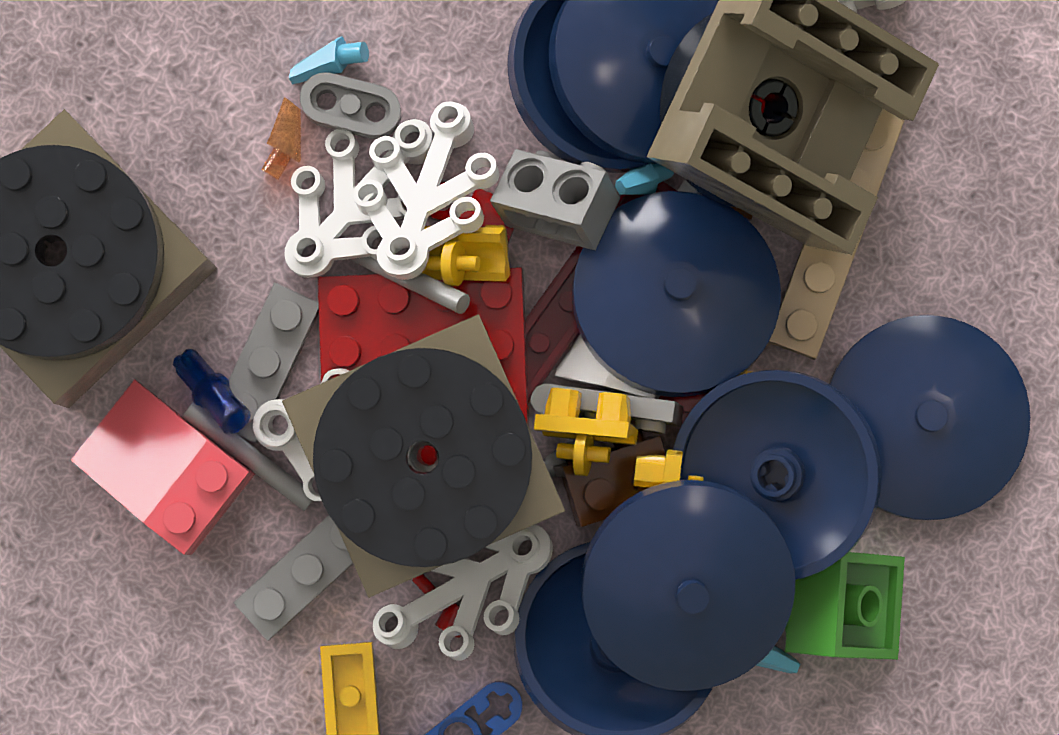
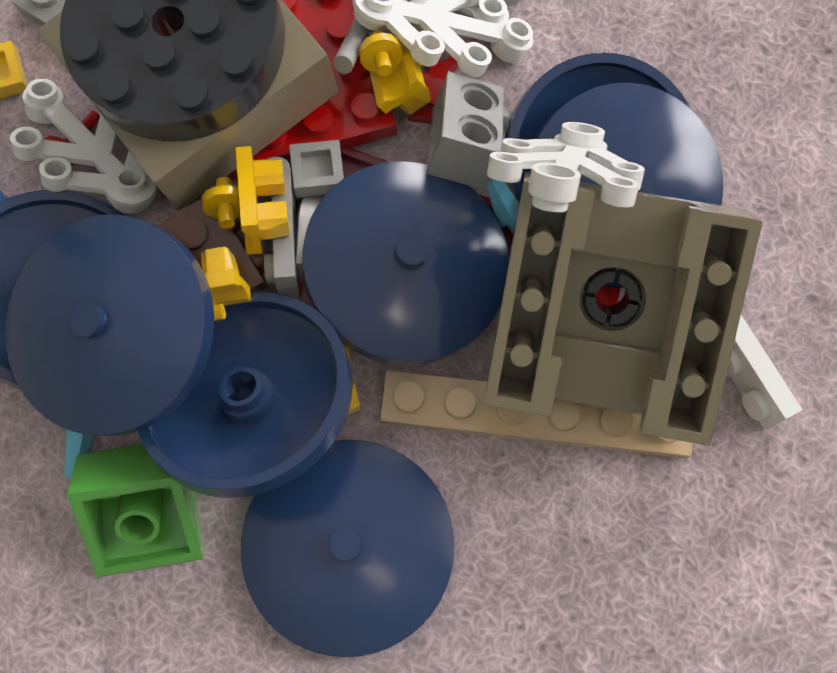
camera: 75 degrees right, 10 degrees down
(550, 357) = (315, 167): none -> light grey plate
(623, 94) = (559, 166): none -> white plant

